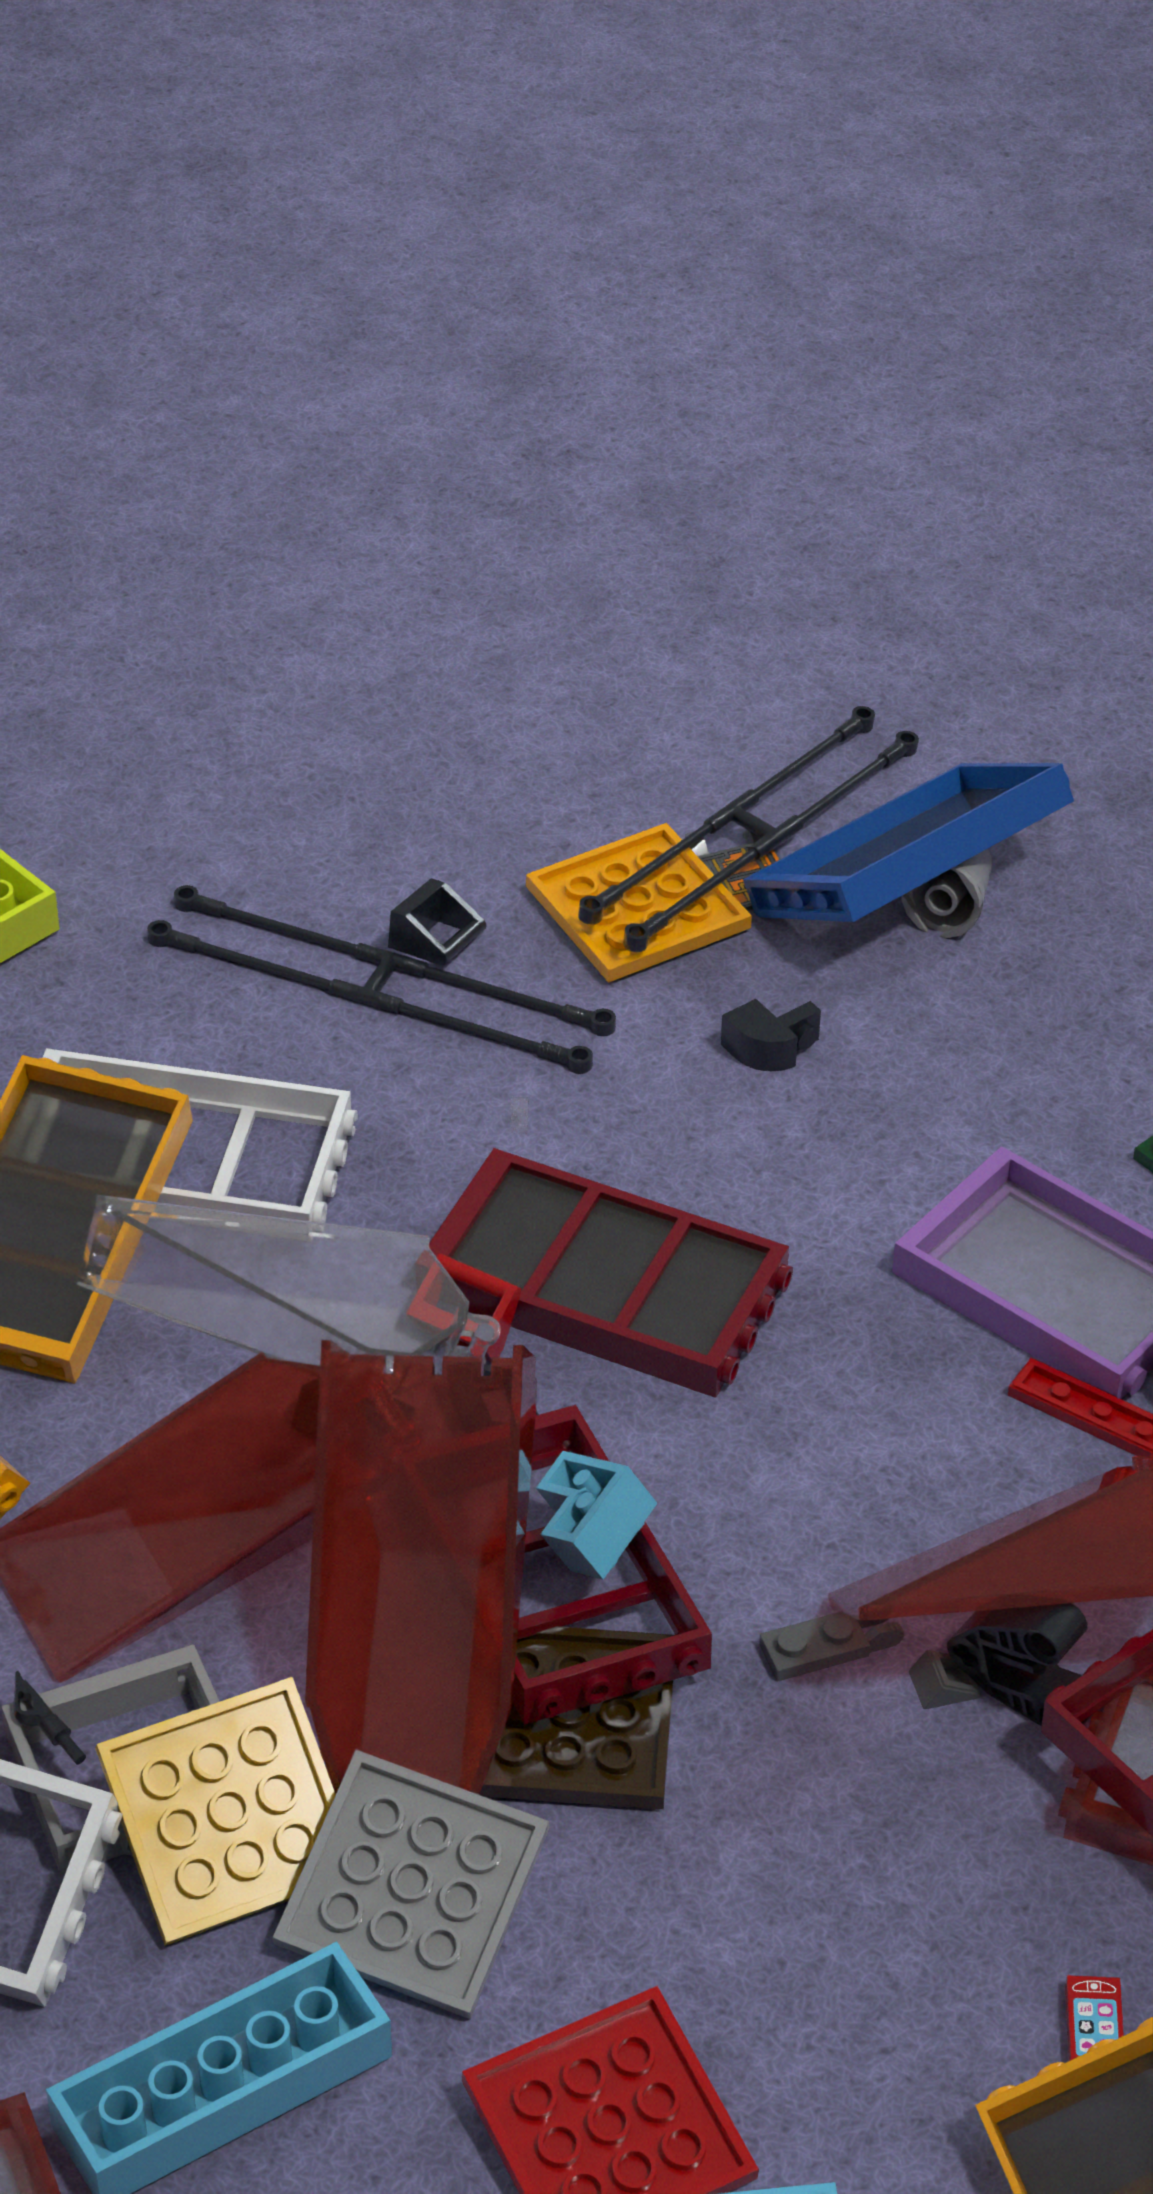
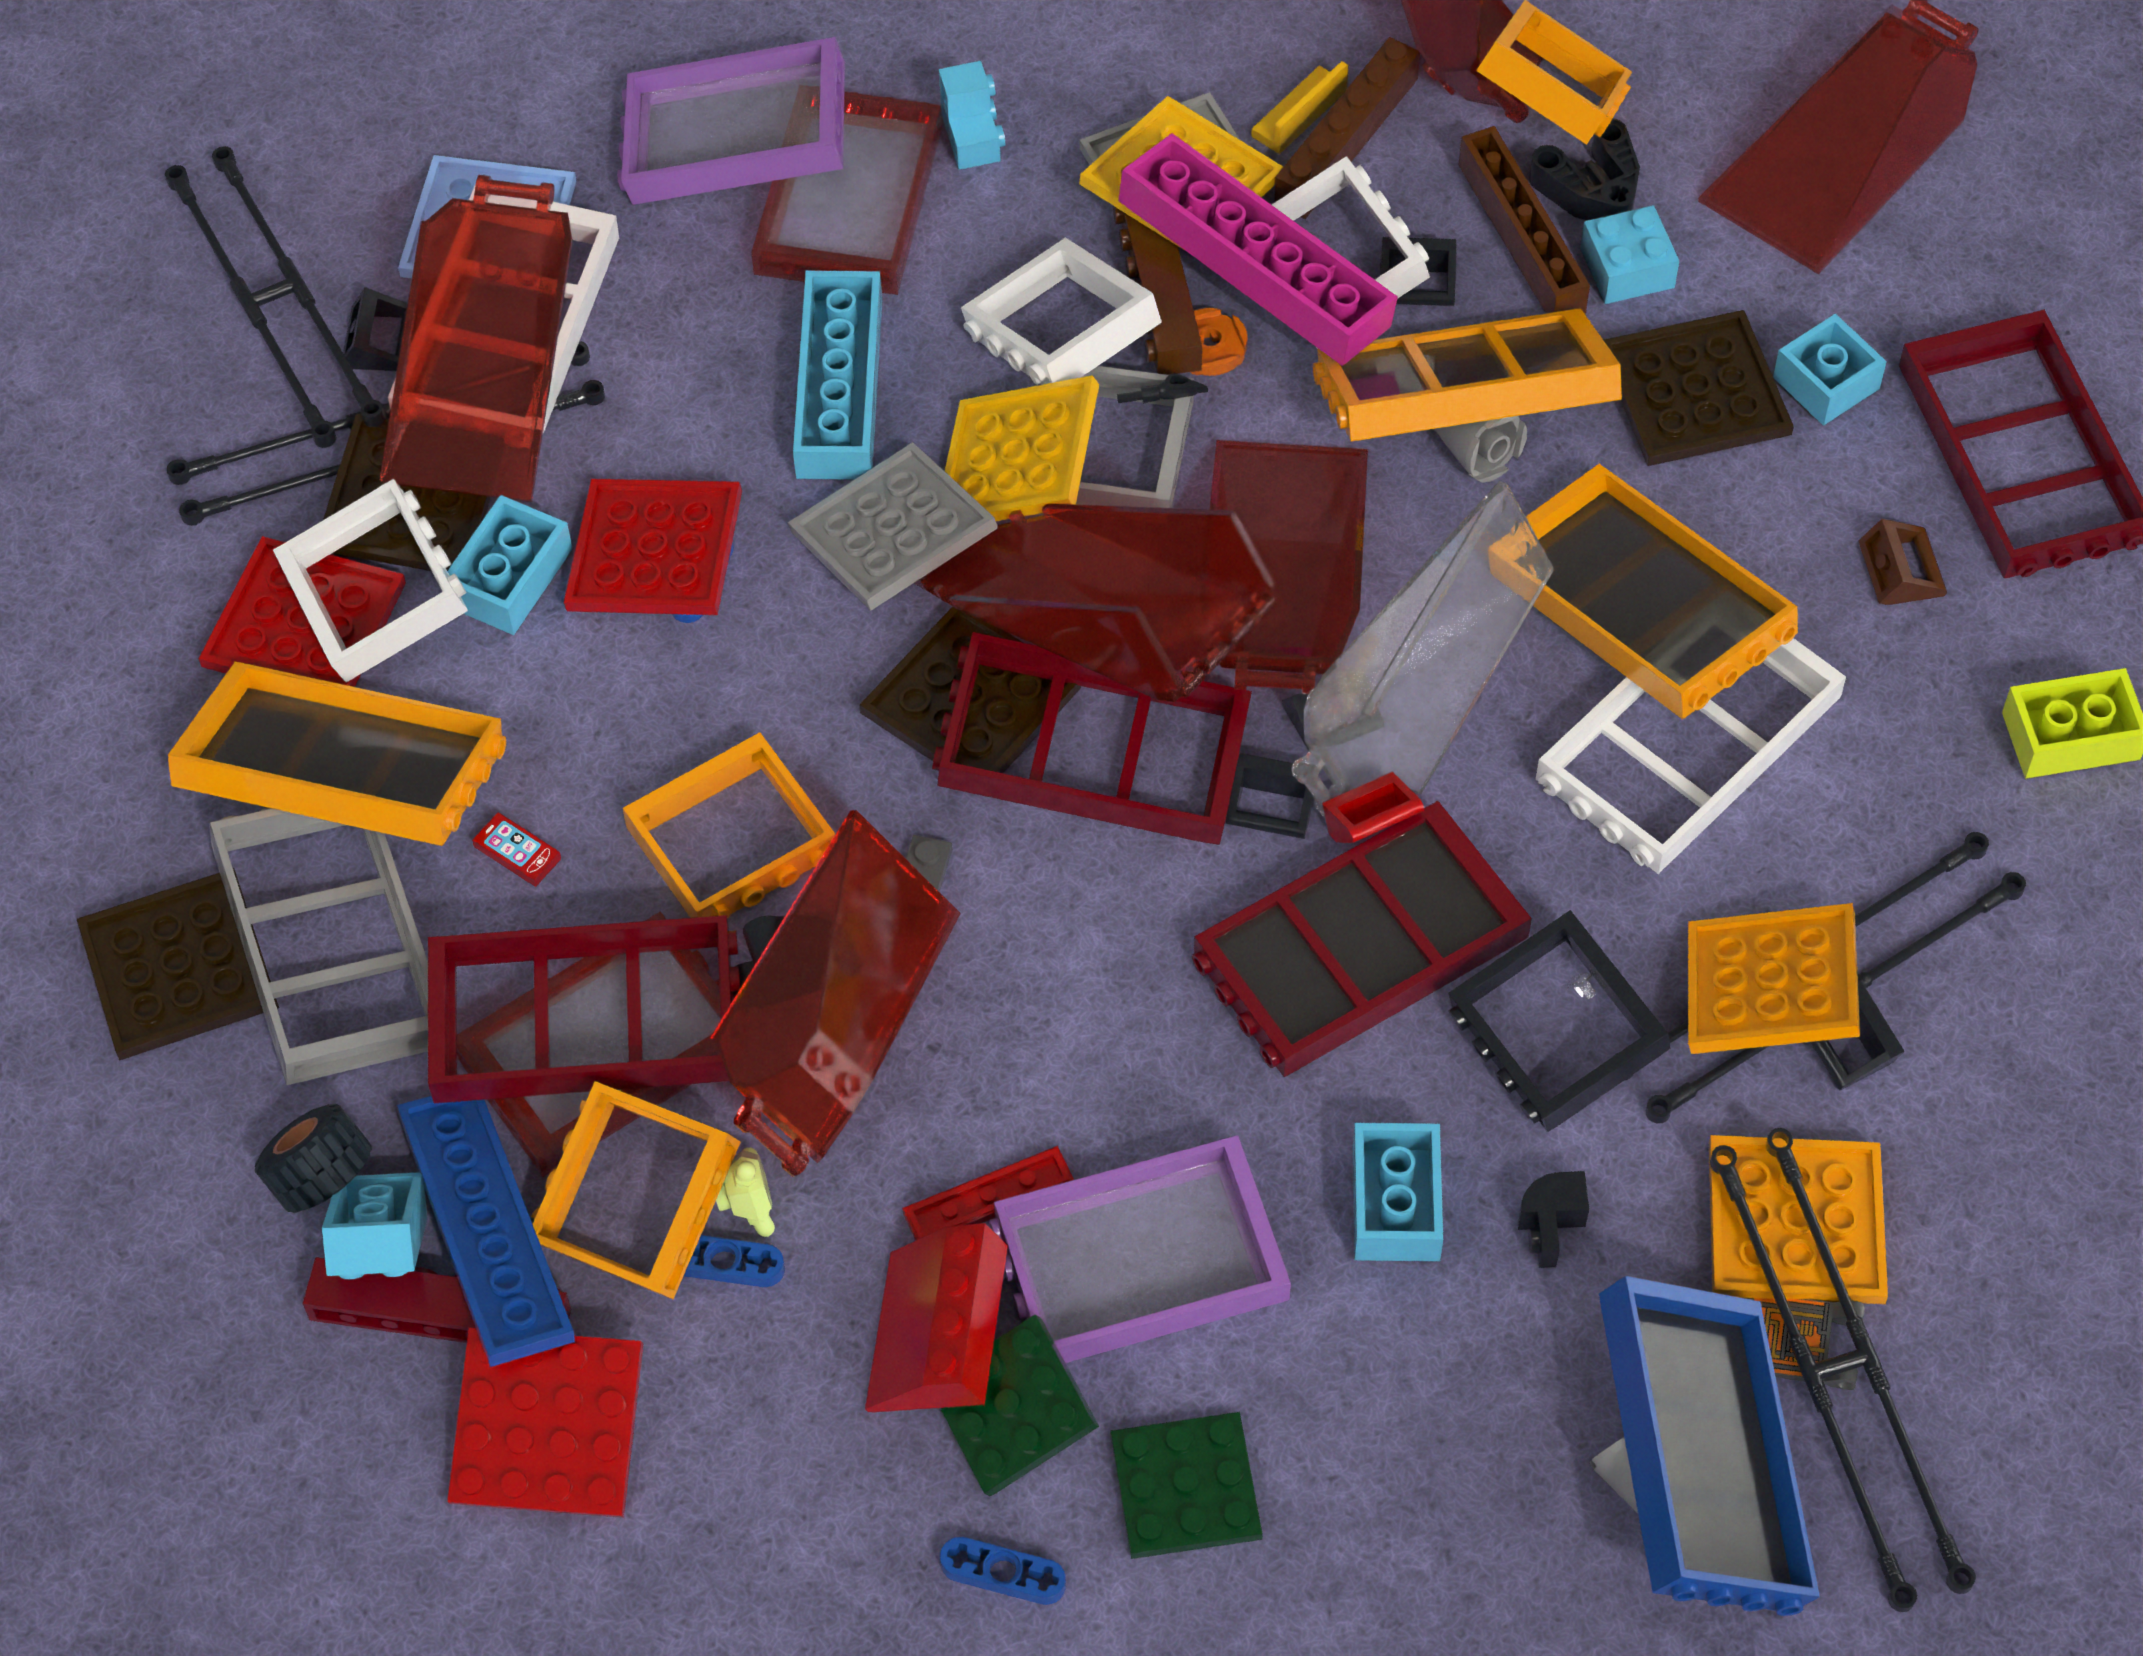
camera: 125 degrees right, 15 degrees up
(431, 968) = (1772, 979): none -> light orange plate
(553, 1144) = (1550, 1114): none -> black window
(596, 1511) = (1094, 756): medium azure brick -> none
(847, 1125) = (1397, 1192): none -> medium azure brick
(882, 1887) = (707, 781): none -> light orange window

